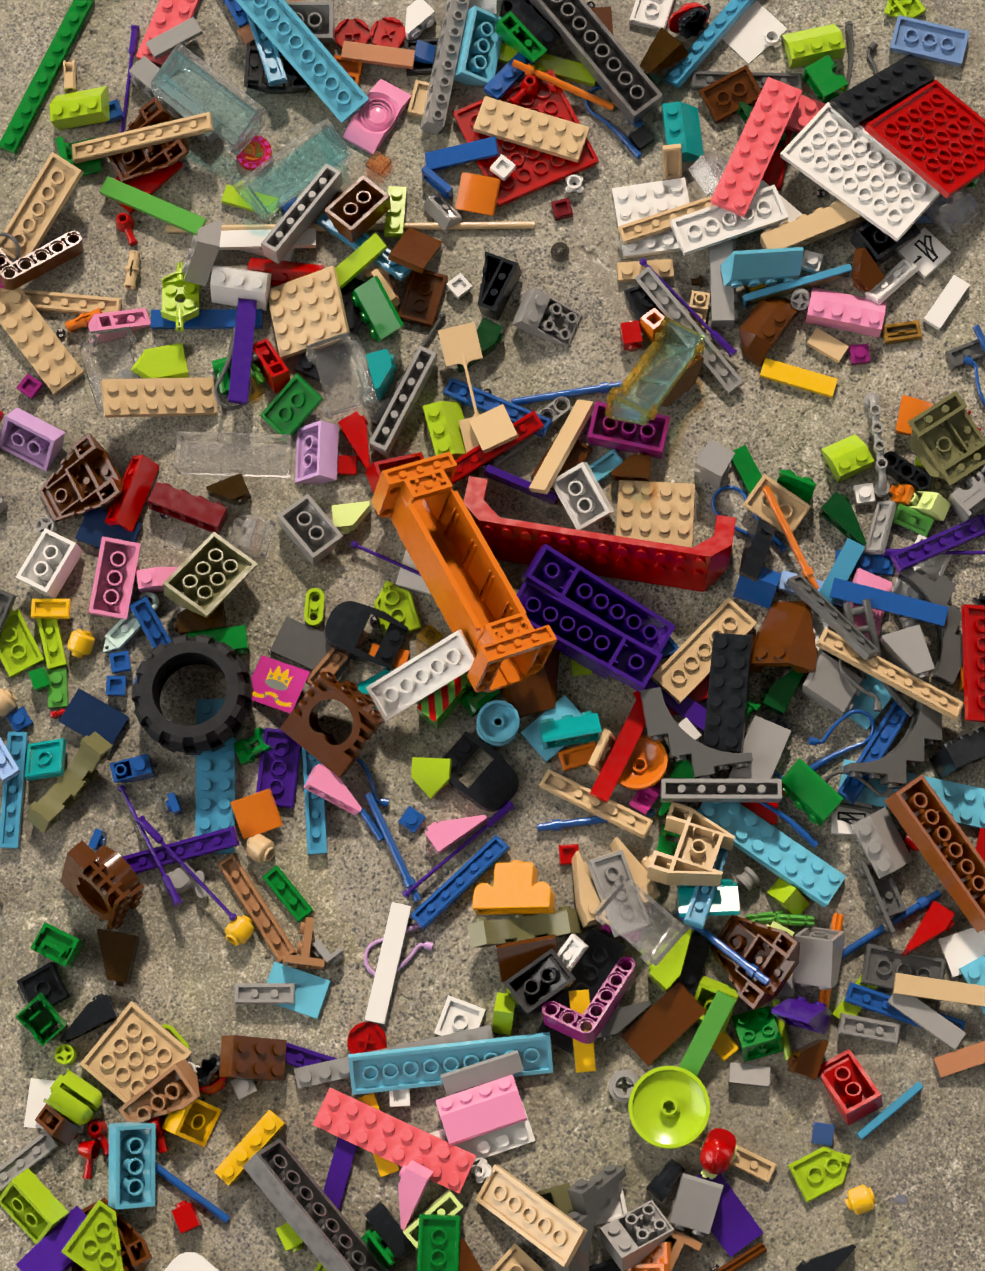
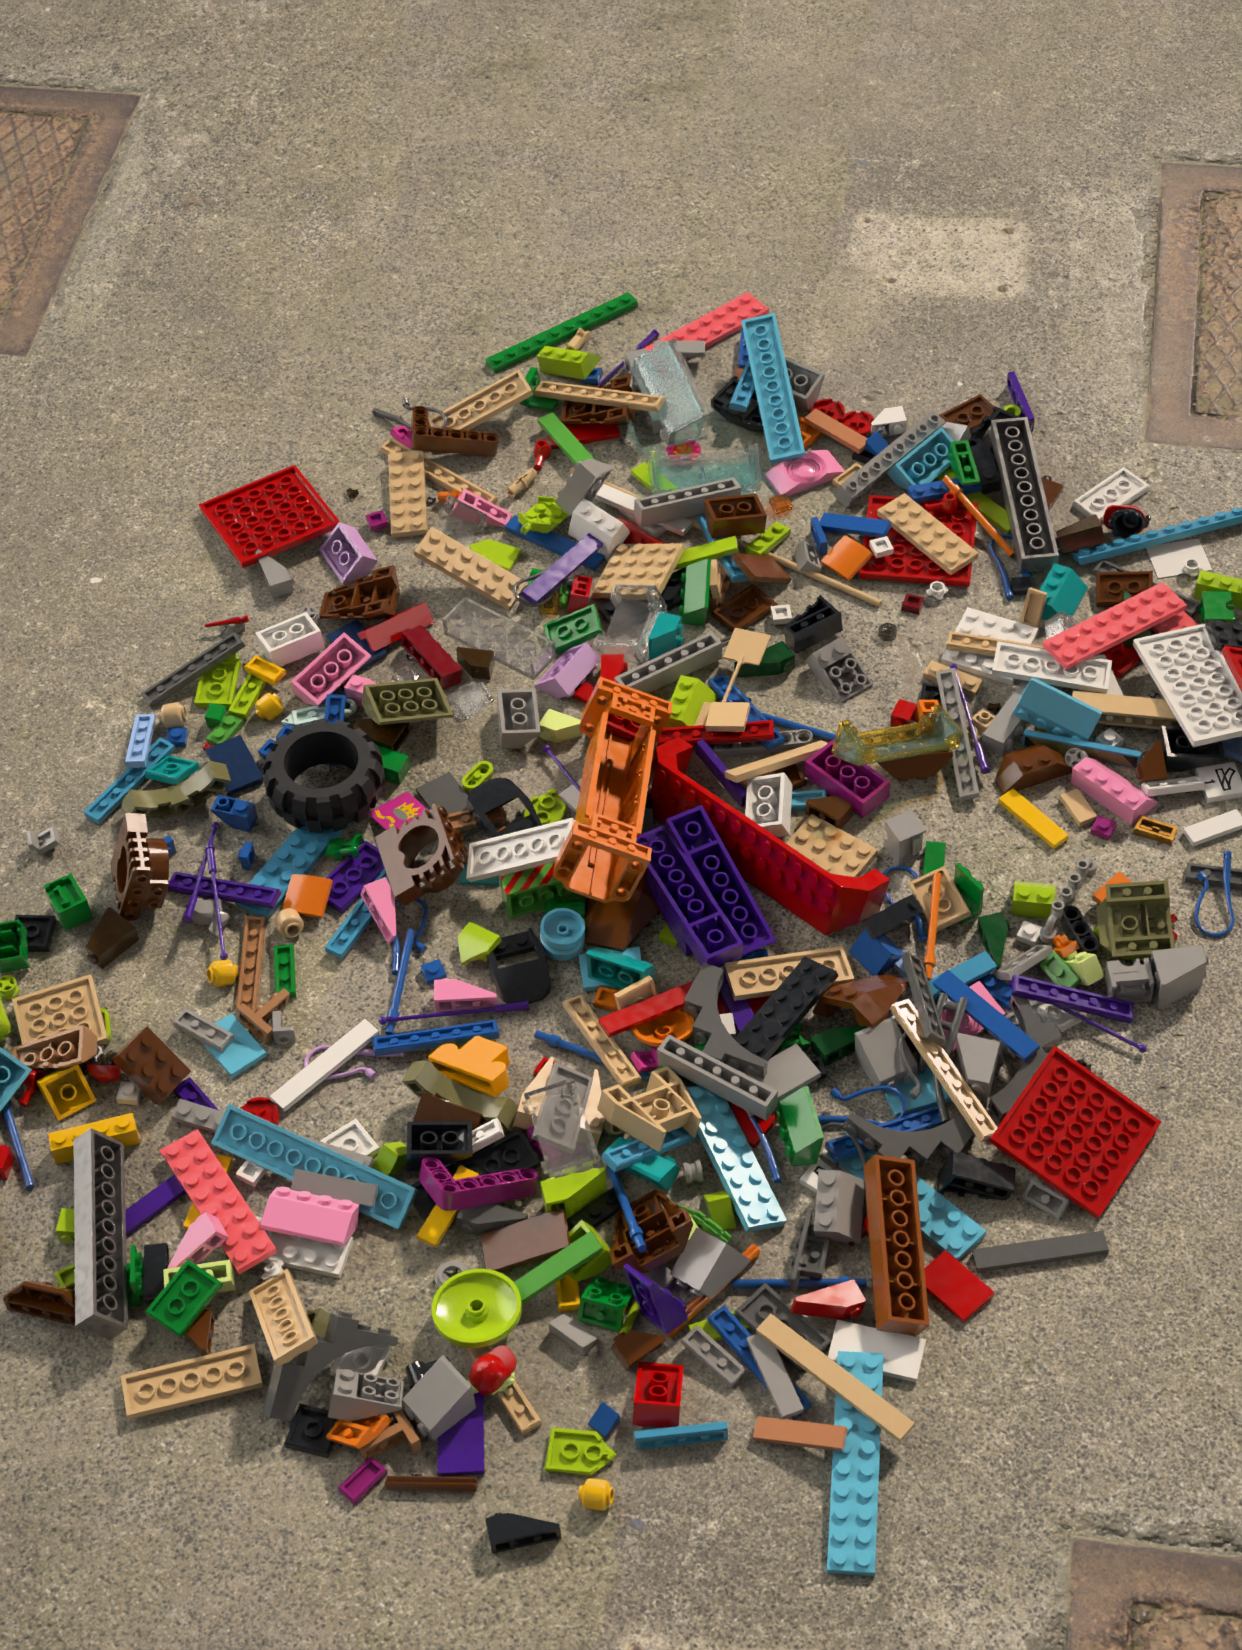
camera: 30 degrees right, 25 degrees down
(93, 1016) = (47, 971): black slope -> none

